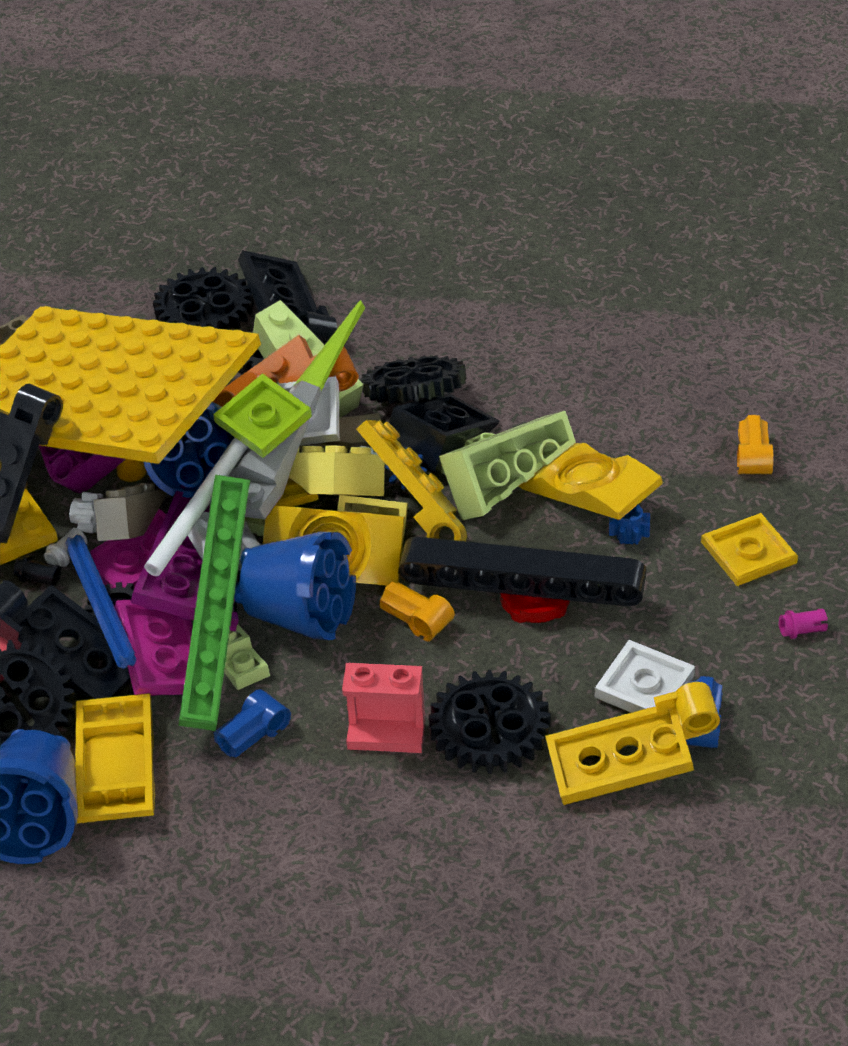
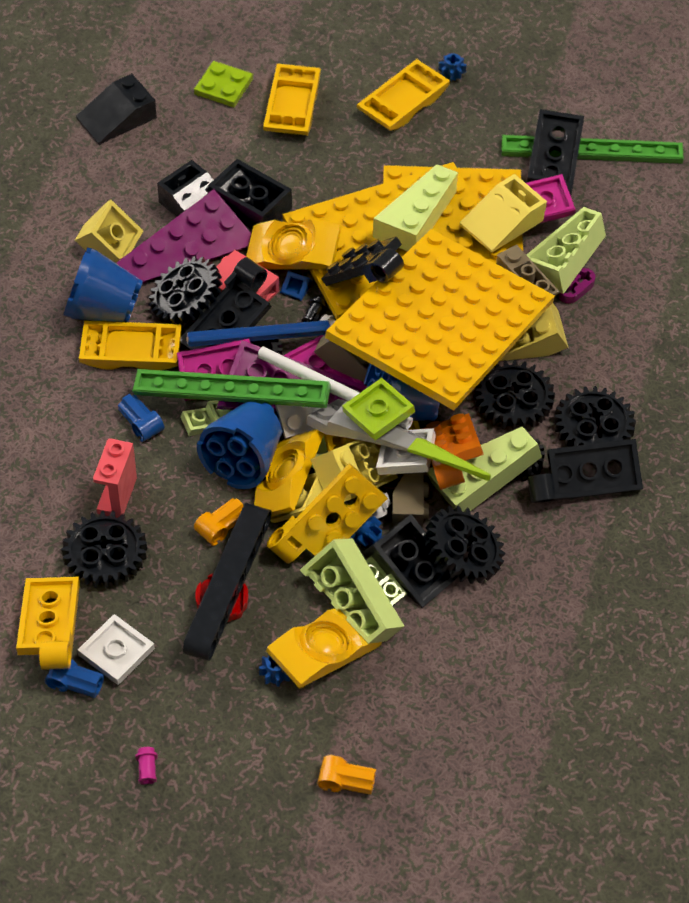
camera: 95 degrees right, 10 degrees up
(749, 549) = (237, 750): yellow tile -> none

